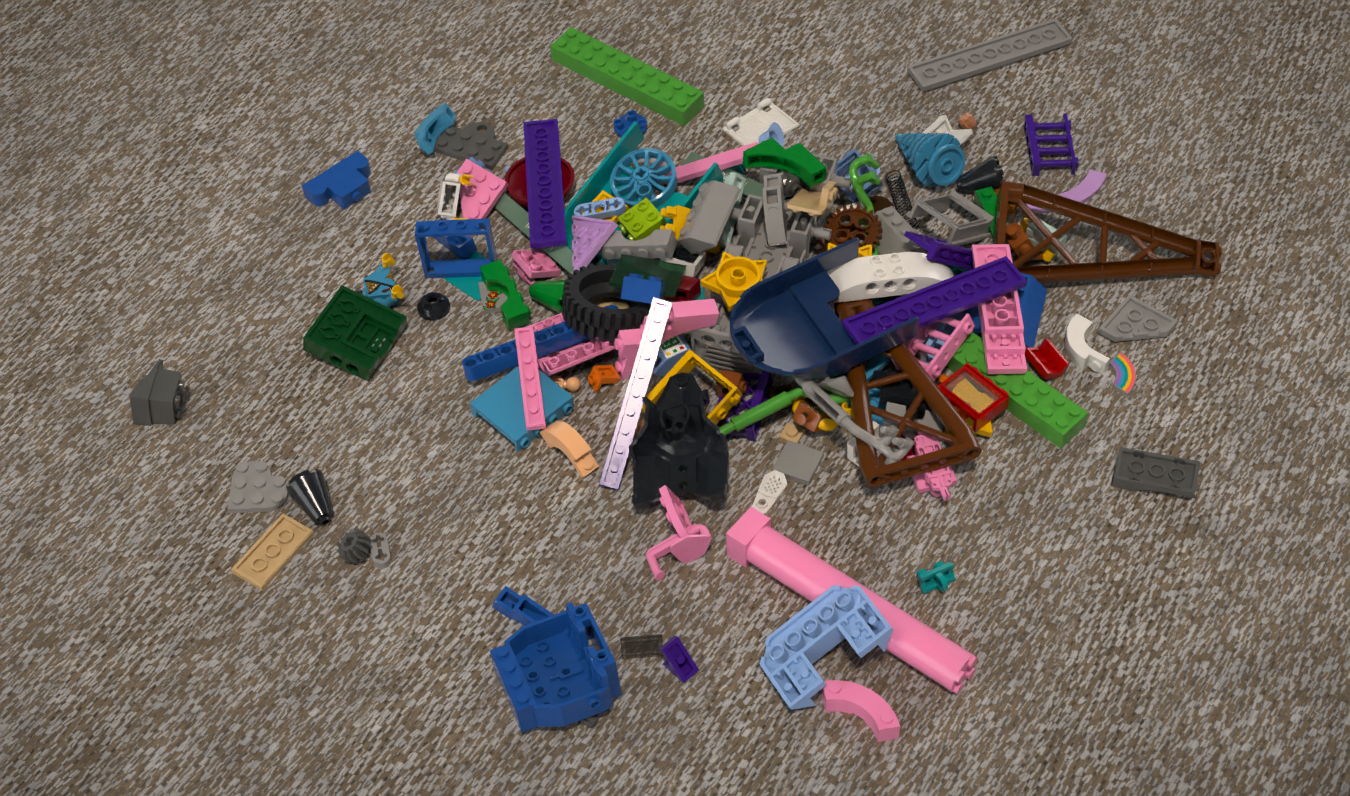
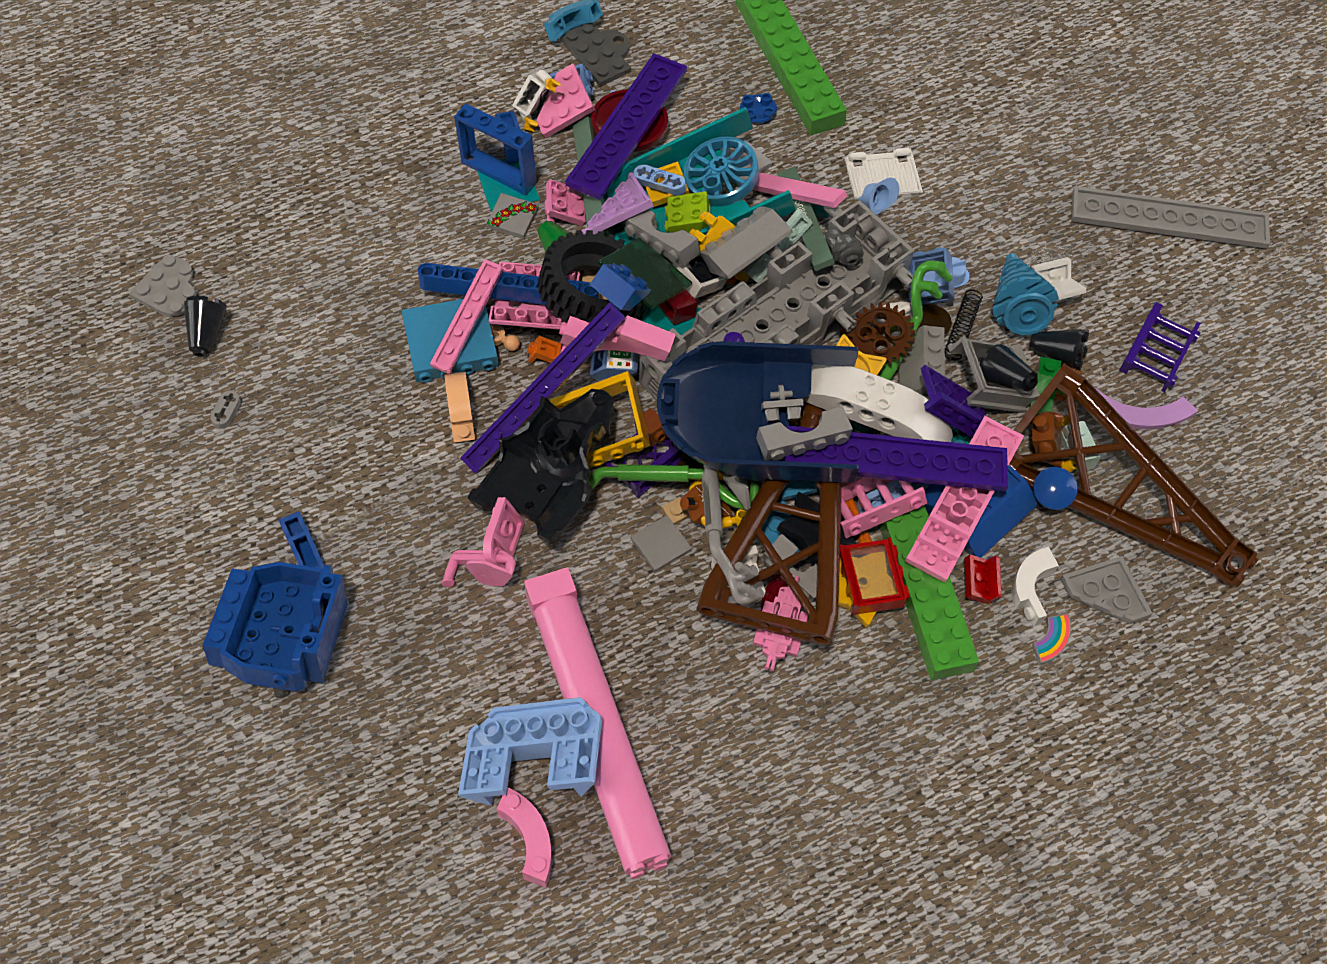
camera: 25 degrees right, 10 degrees up
(158, 397) = (143, 152): dark grey piece -> none
(272, 552) = (137, 356): tan tile -> none
(342, 183) = (454, 28): blue brick -> none
(354, 333) = (353, 183): dark green piece -> none
(354, 546) = (203, 393): dark grey gear -> none
(381, 285) = (412, 150): torso -> none
(433, 311) = (447, 200): black piece -> none
(497, 279) = (509, 238): green arch -> none
(641, 646) = (380, 644): clear smoke tile -> none
(678, 659) = (398, 679): dark purple slope -> none
(734, 277) = (720, 321): yellow plate -> none
(769, 491) = (606, 560): white piece -> none
(774, 209) = (811, 270): light grey slope -> none
(794, 160) = (865, 228): green arch -> none
(814, 202) = (854, 282): tan bracket -> none
(835, 305) = (772, 407): none -> light grey hips
(848, 330) = (779, 441): none -> light grey arch
(943, 573) = (708, 745): teal hips -> none
(962, 208) = (1007, 370): none -> black cone
(967, 121) = (1092, 277): nougat plate -> none
(1053, 271) = (1055, 488): none -> blue dish
(1153, 471) = (1005, 766): dark grey piece -> none

